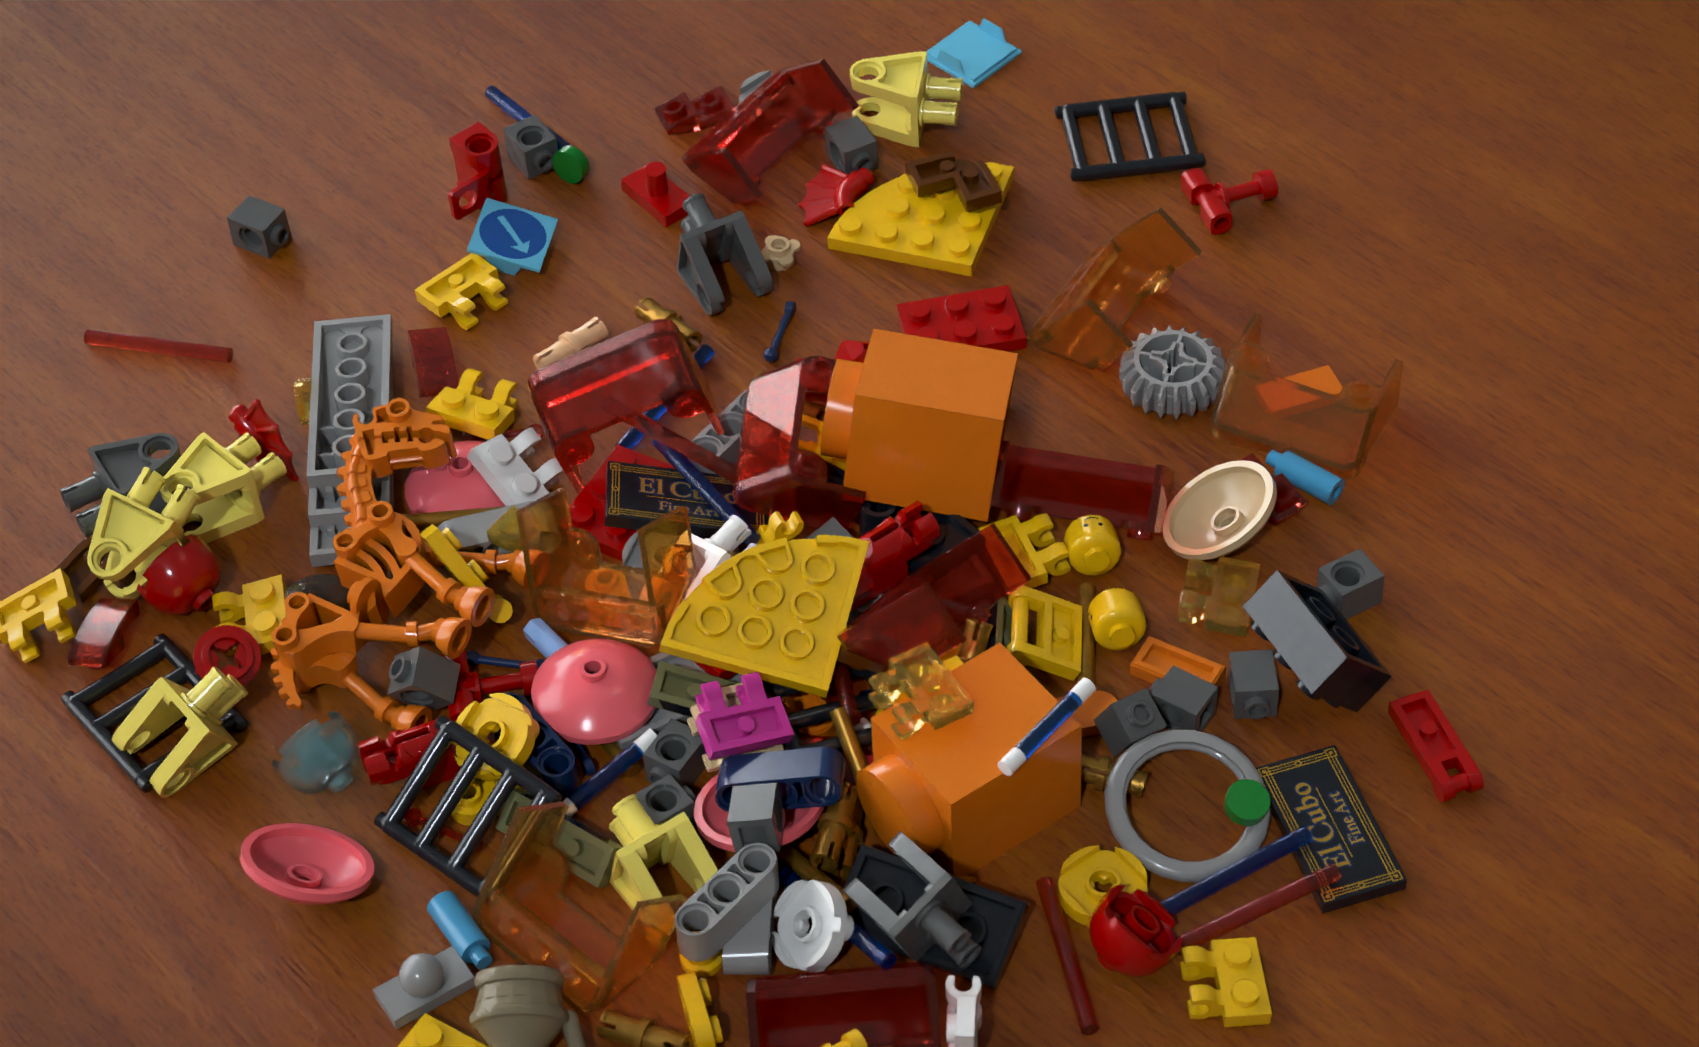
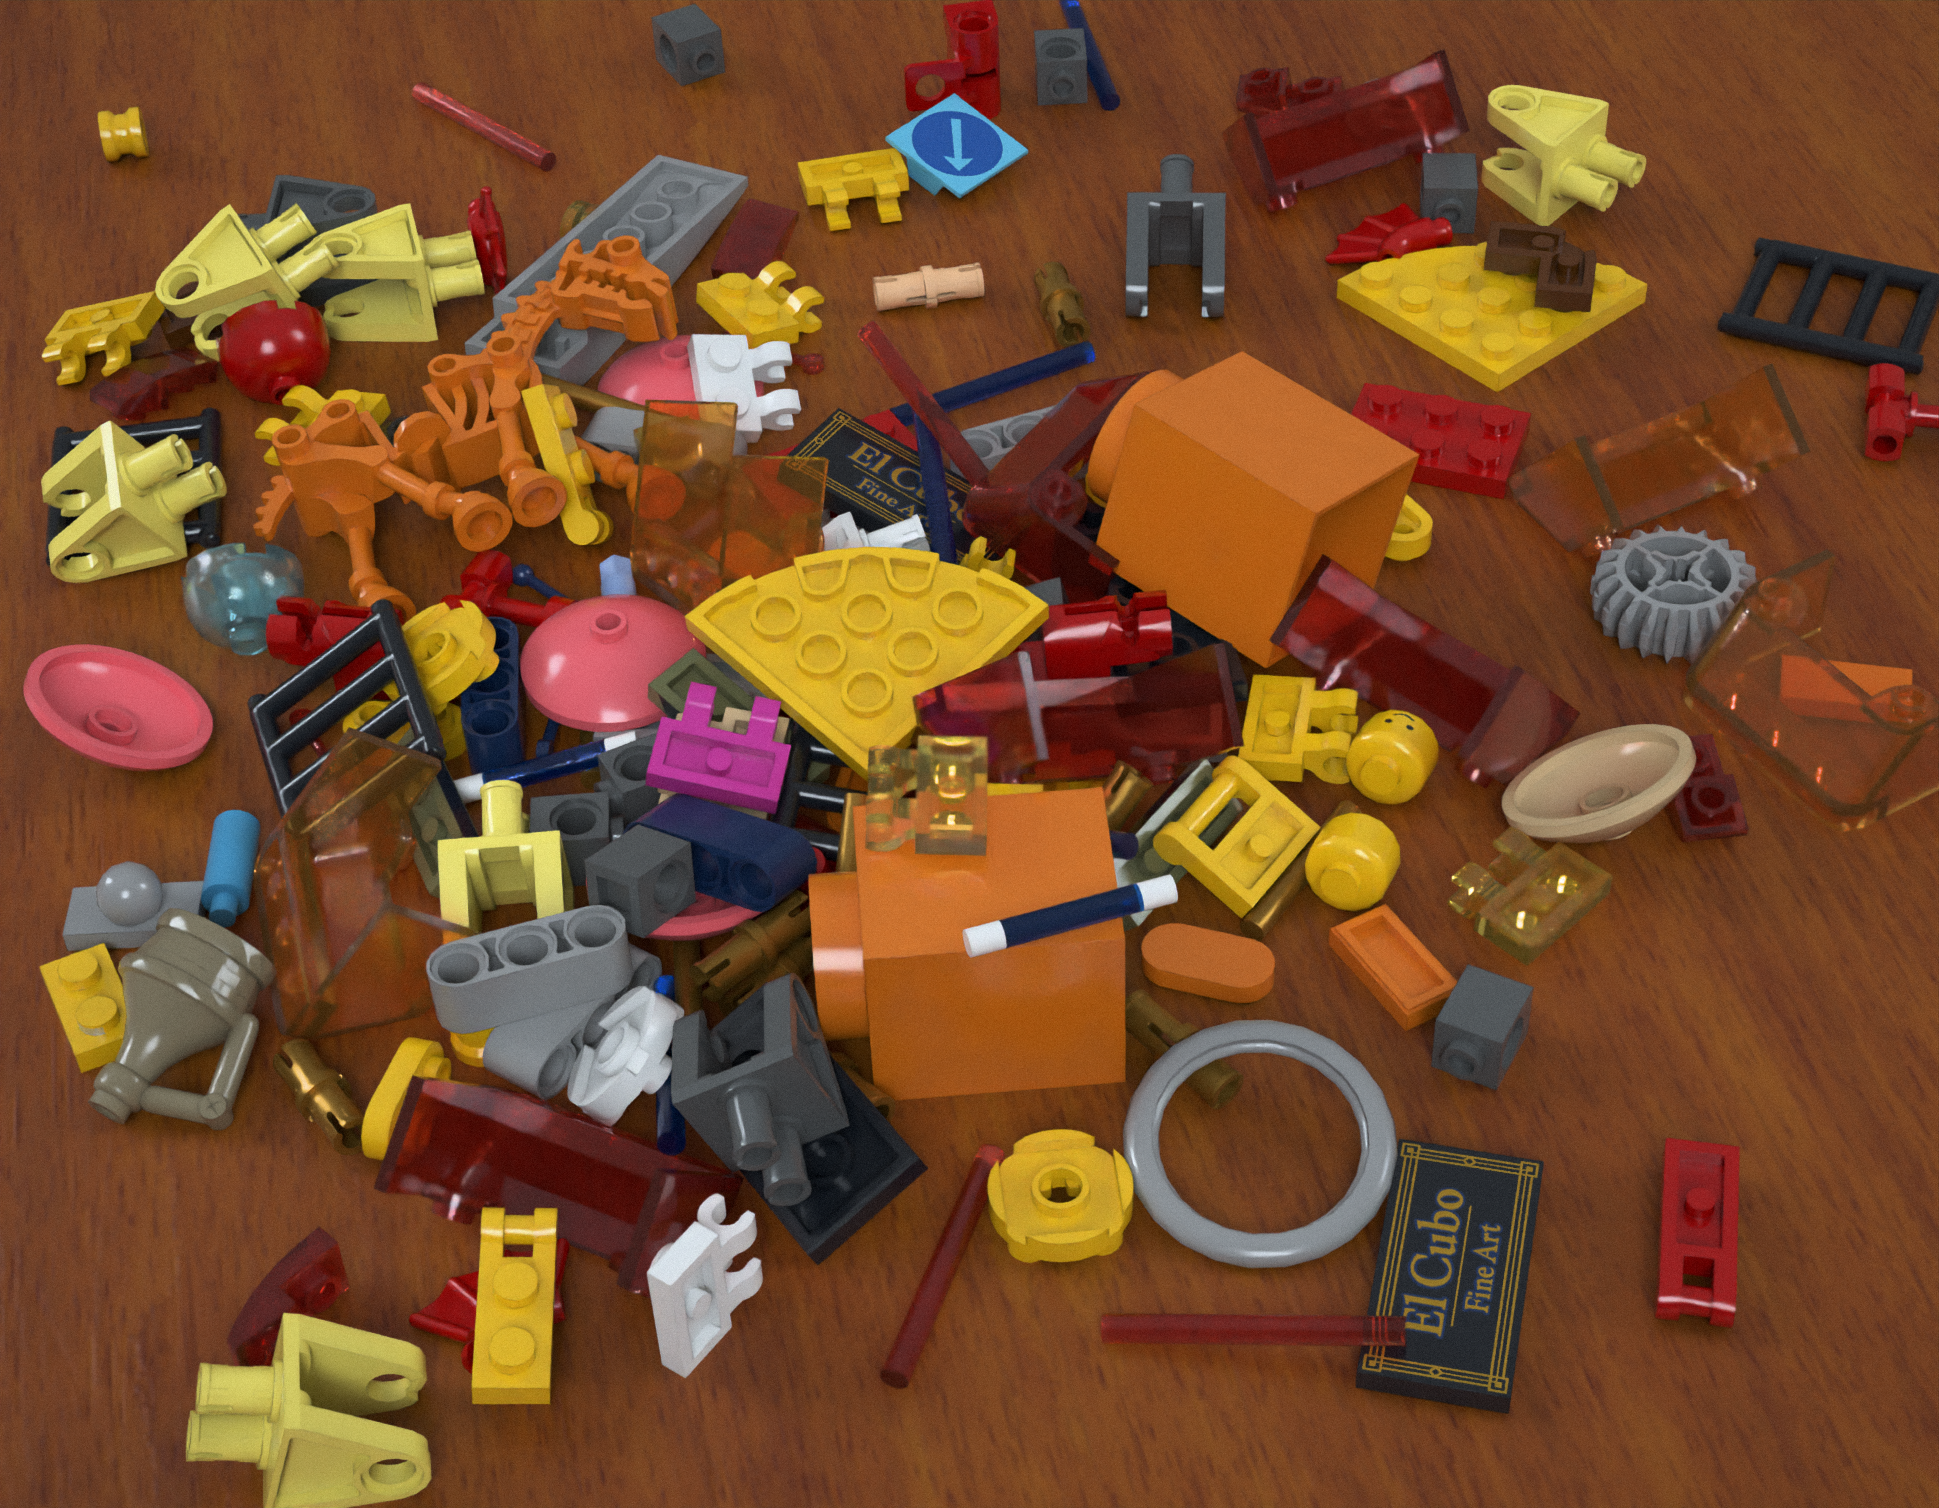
camera: 30 degrees right, 5 degrees down
(222, 640) = (255, 434): red gear -> none
(423, 678) = (421, 560): dark grey brick -> none
(570, 164) = (1091, 99): green tile -> none
(615, 384) = (901, 303): clear red windscreen -> none
(656, 193) = (1170, 139): red tile -> none
(771, 354) = (1228, 344): dark blue hinge -> none
(780, 252) = (1266, 277): tan plate -> none
(973, 52) = (1699, 148): medium azure piece -> none
(1129, 721) = (1259, 986): dark grey brick -> none
(1133, 933) = (1038, 1268): red cylinder -> none
(1184, 700) = (1362, 1006): dark grey brick -> none
(1237, 870) = (1255, 1265): clear blue bar -> none
(1239, 982) = (1154, 1420): yellow plate -> none
(1246, 802) = (1340, 1173): green tile -> none
(1306, 476) = (1774, 797): dark azure cylinder -> none
(1315, 642) = (1604, 1005): brick -> none
(1352, 583) = (1724, 959): dark grey brick -> none

